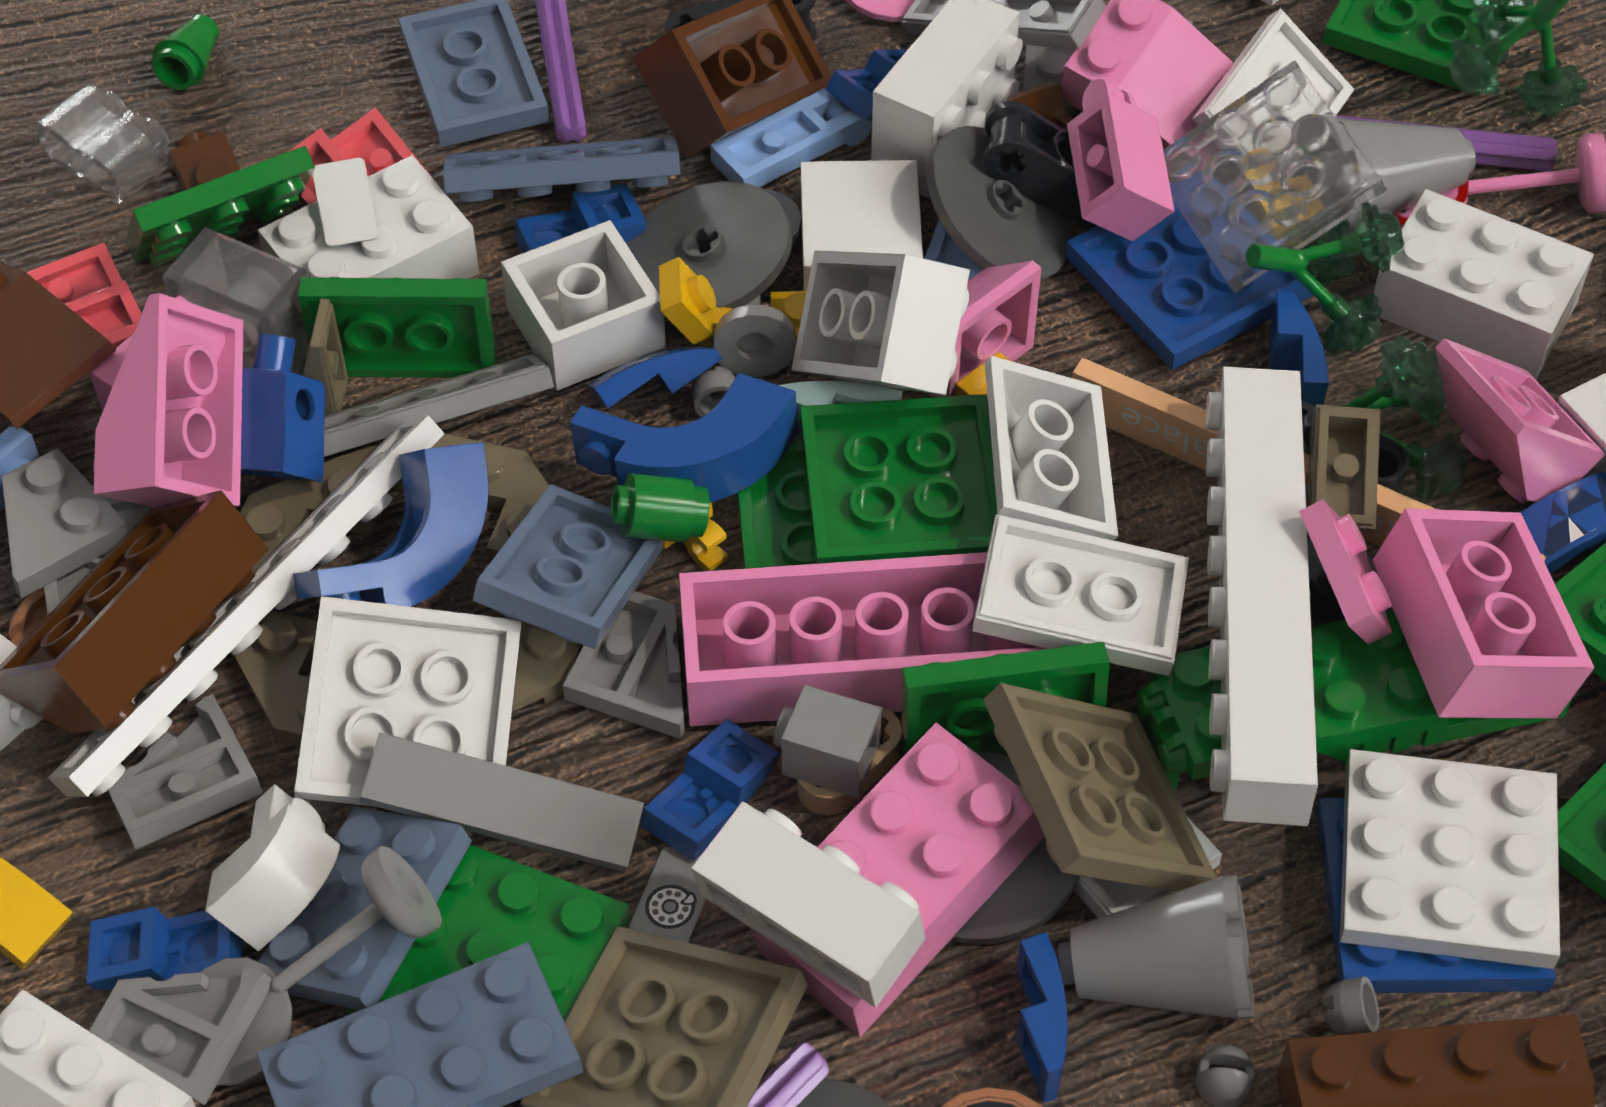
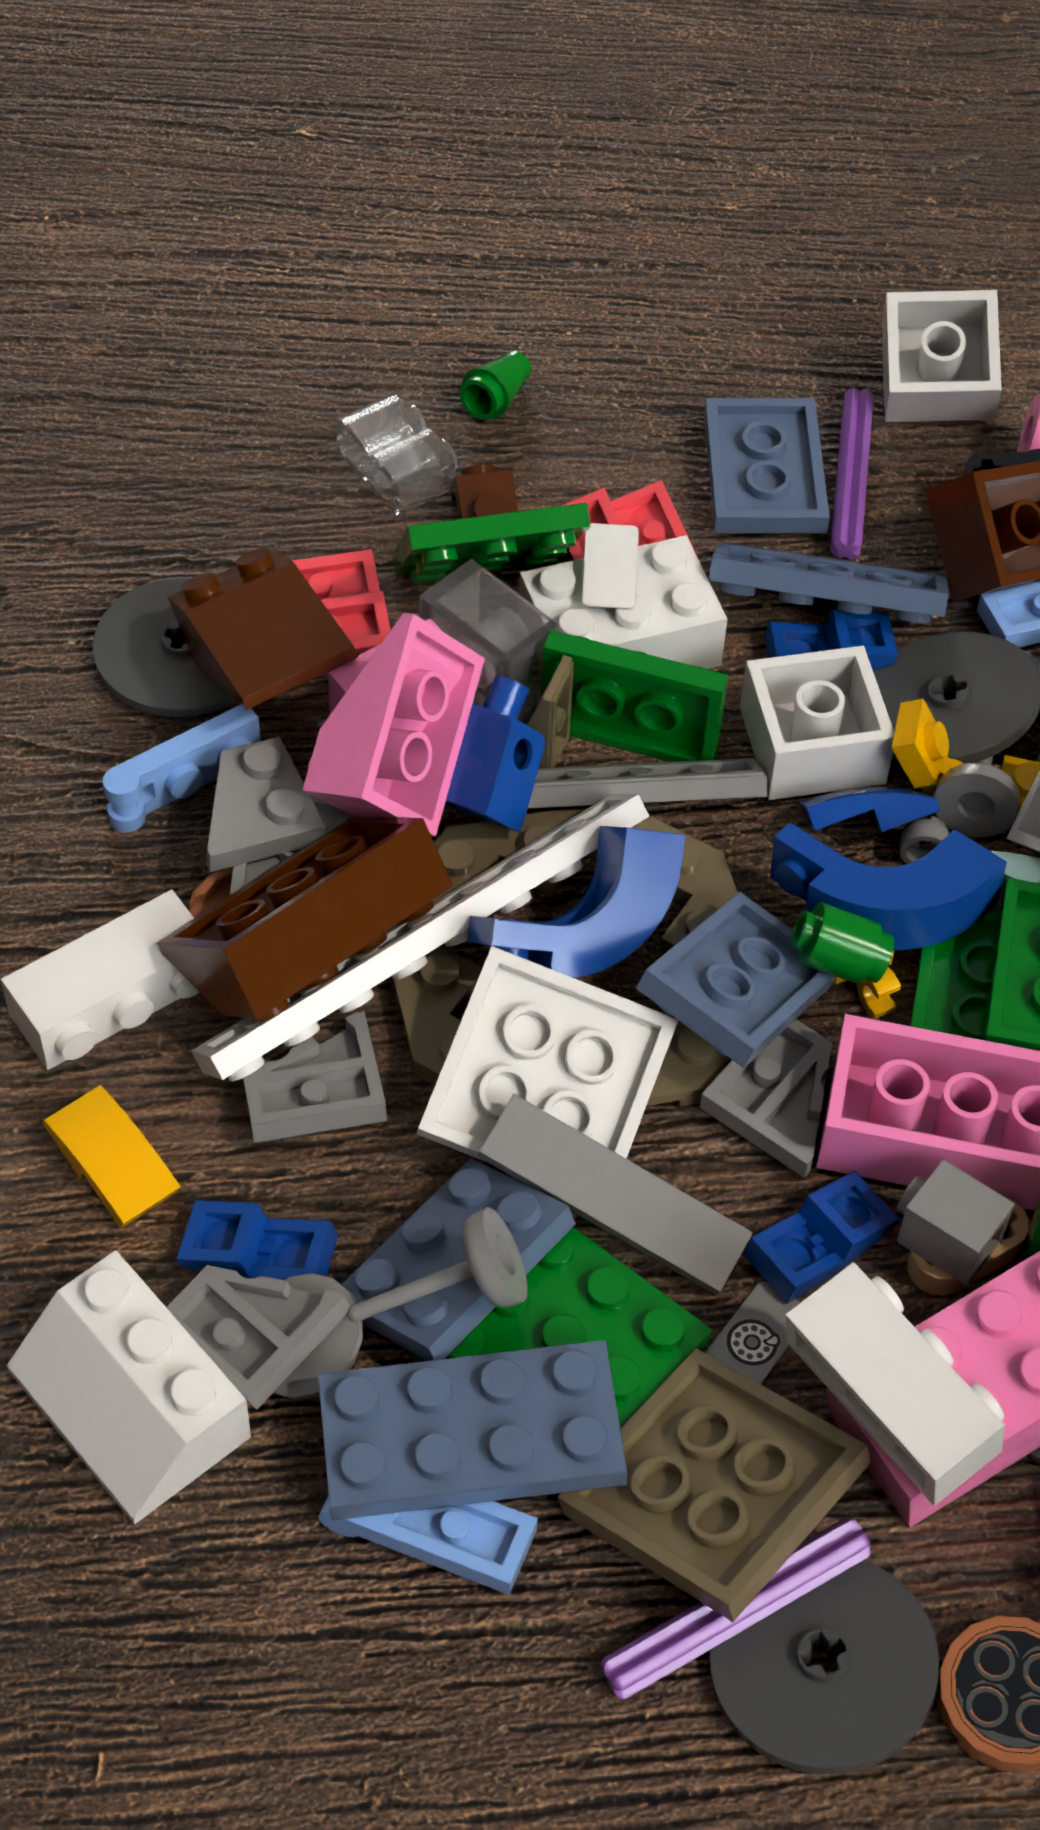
camera: 15 degrees right, 0 degrees up
(274, 870) = (378, 1201): white brick -> none

